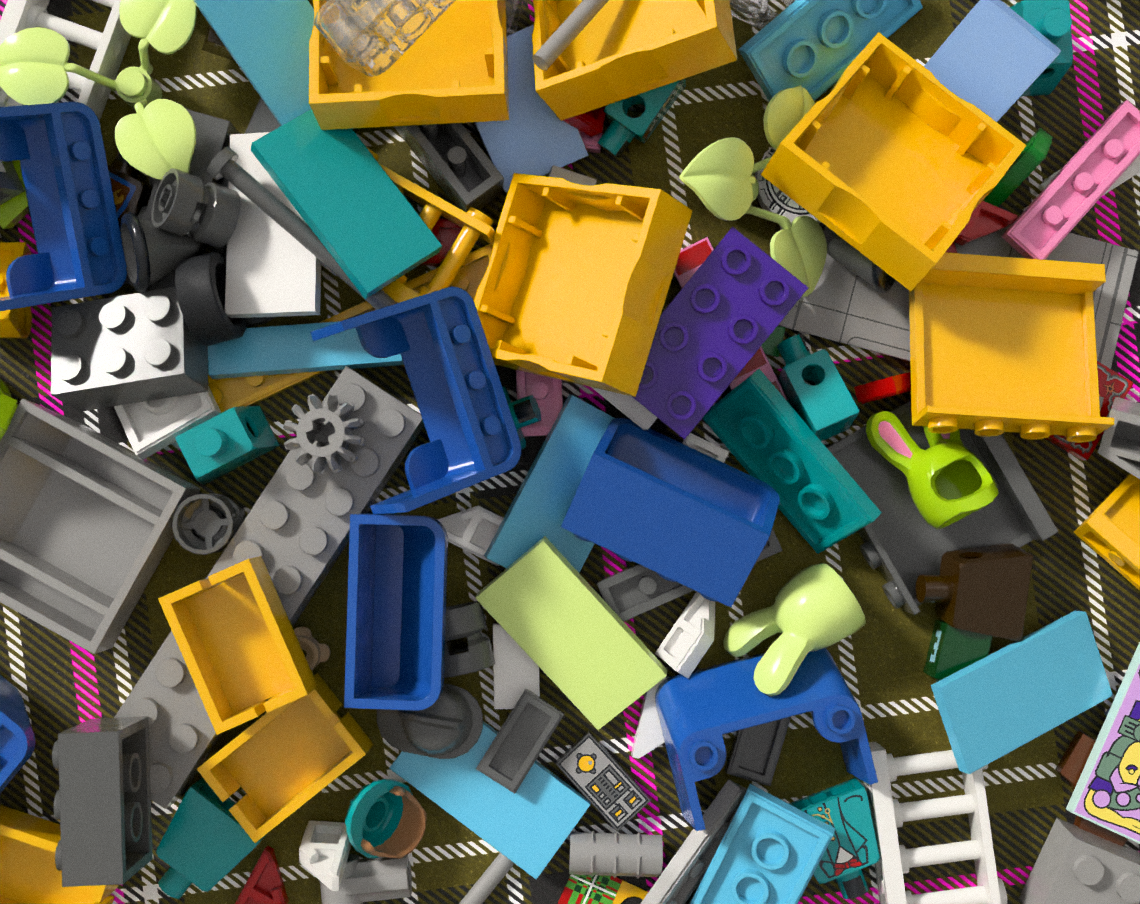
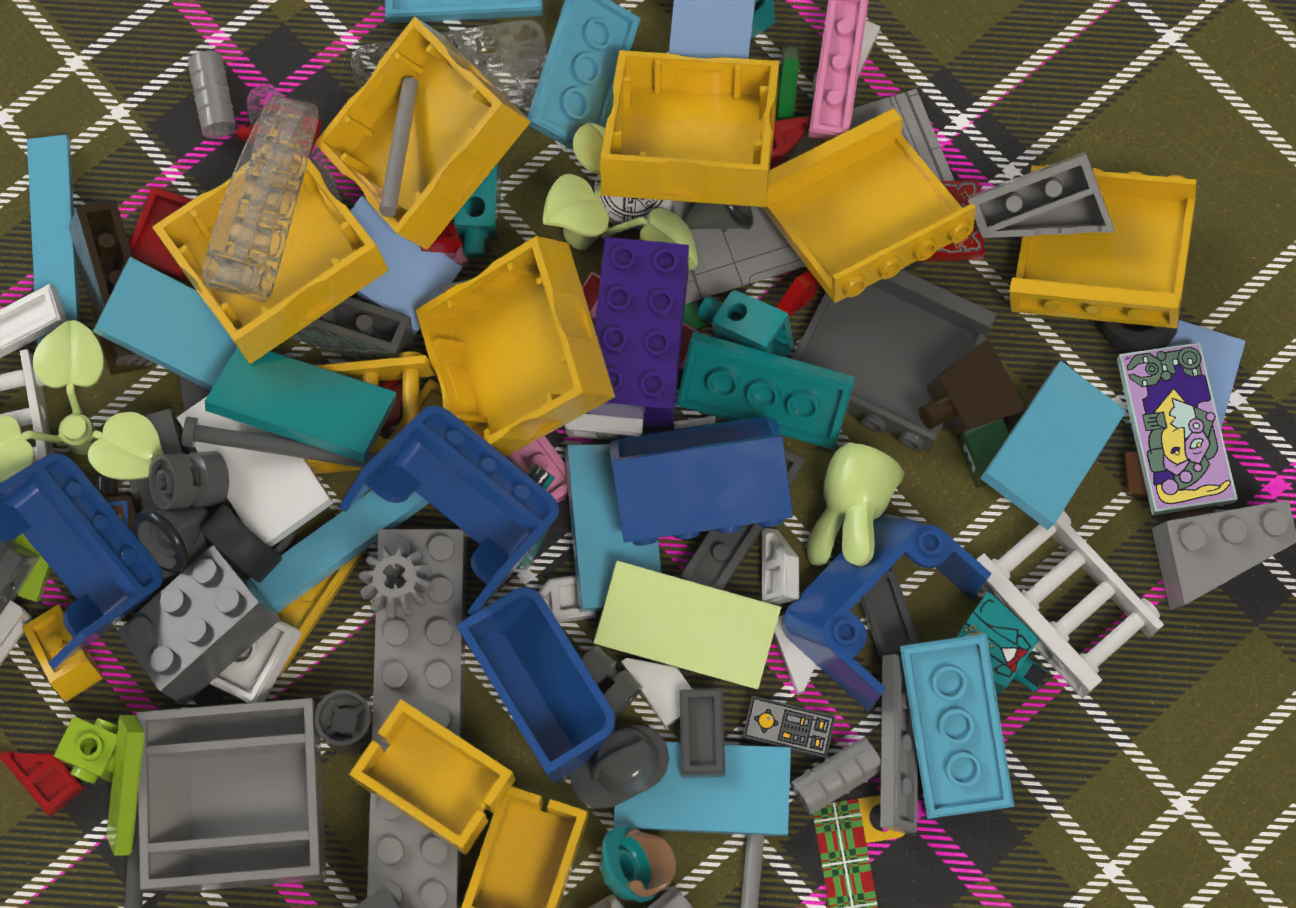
camera: 30 degrees left, 15 degrees down
(226, 442) = (317, 656): teal torso -> none
(942, 480) = (886, 330): lime piece -> none

